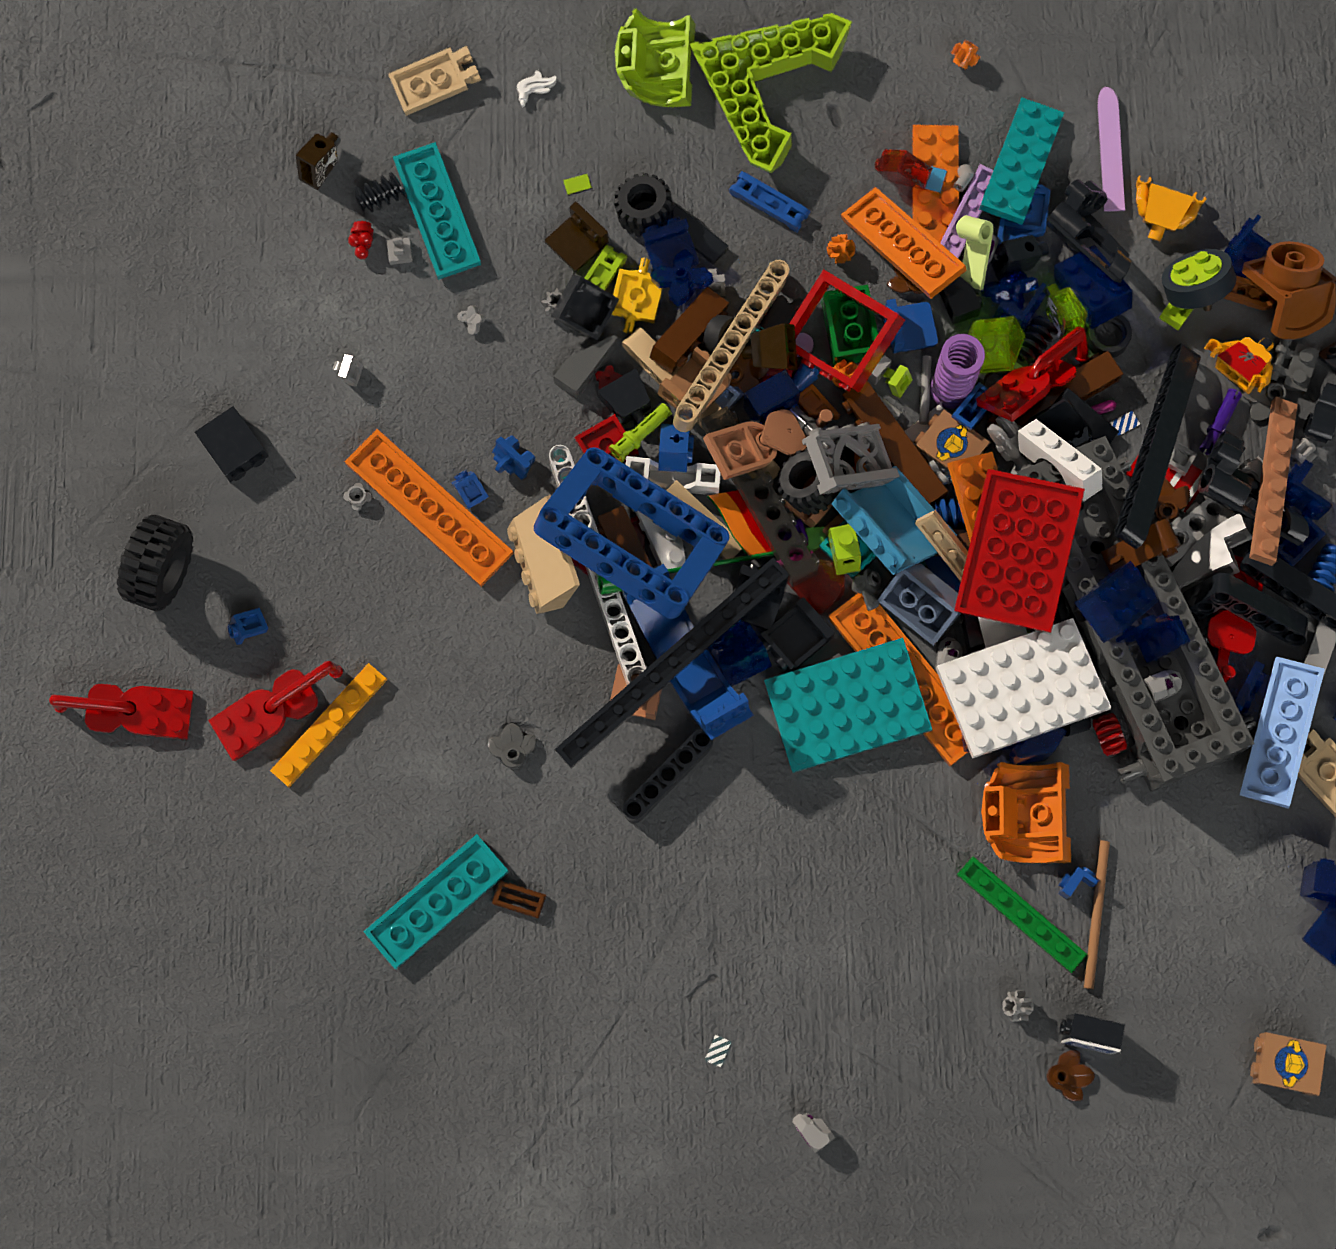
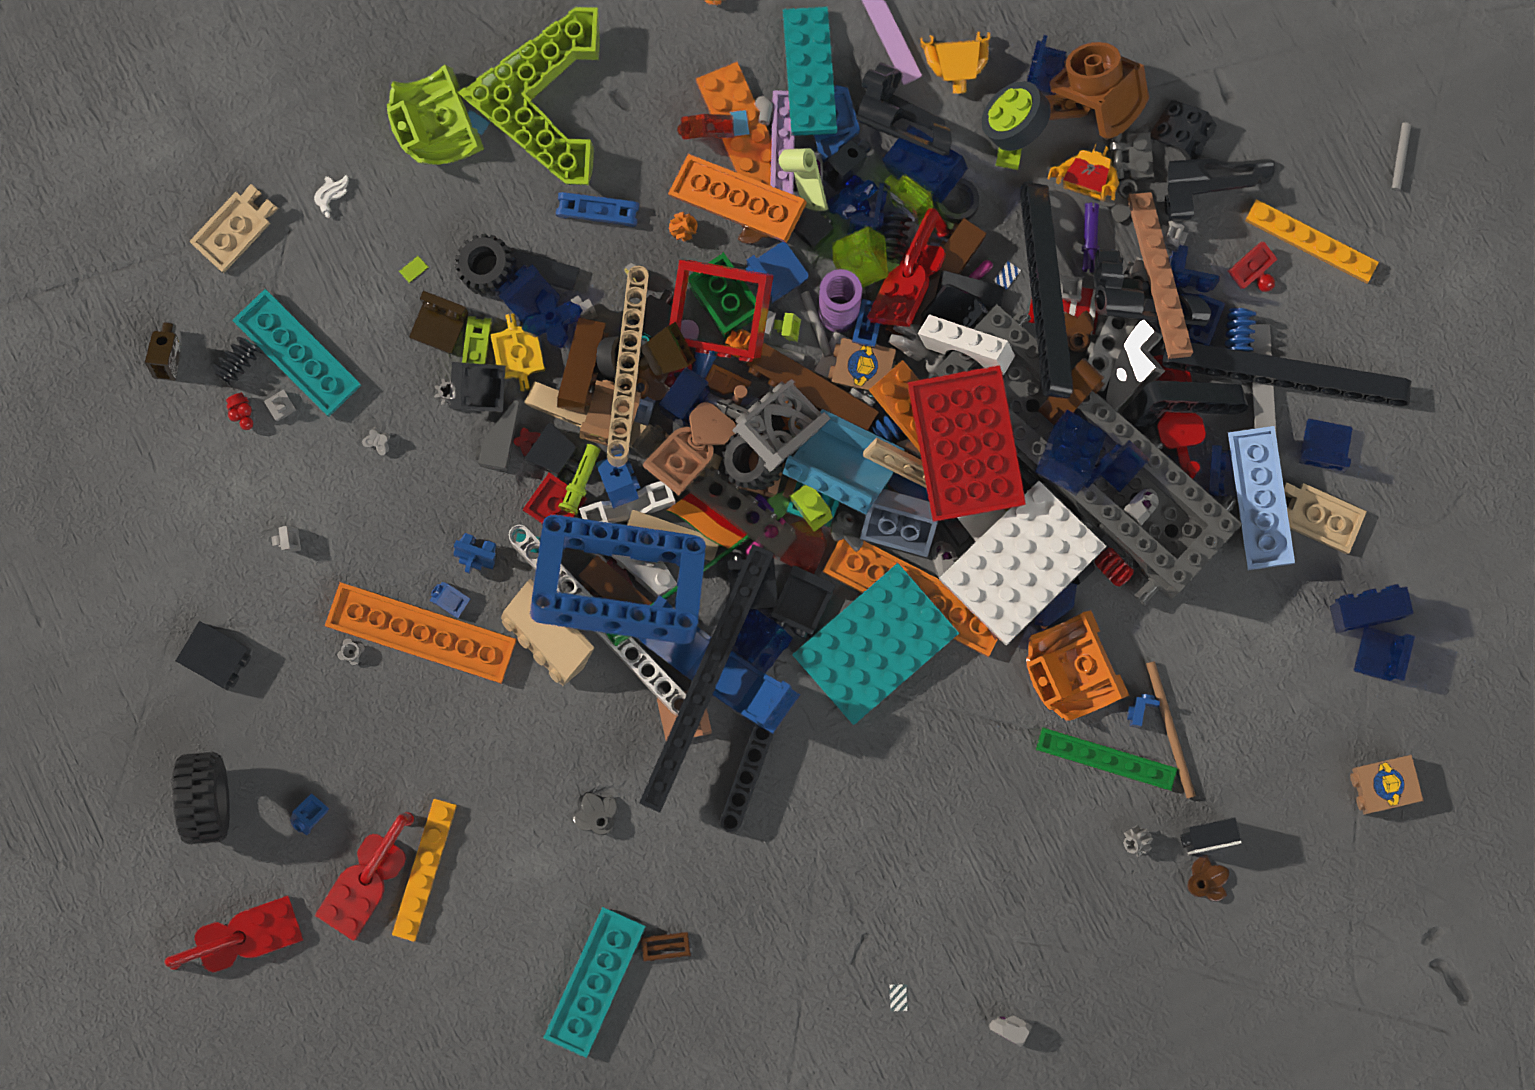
camera: 25 degrees left, 5 degrees up
(696, 81) = (478, 122): none -> dark azure sticker

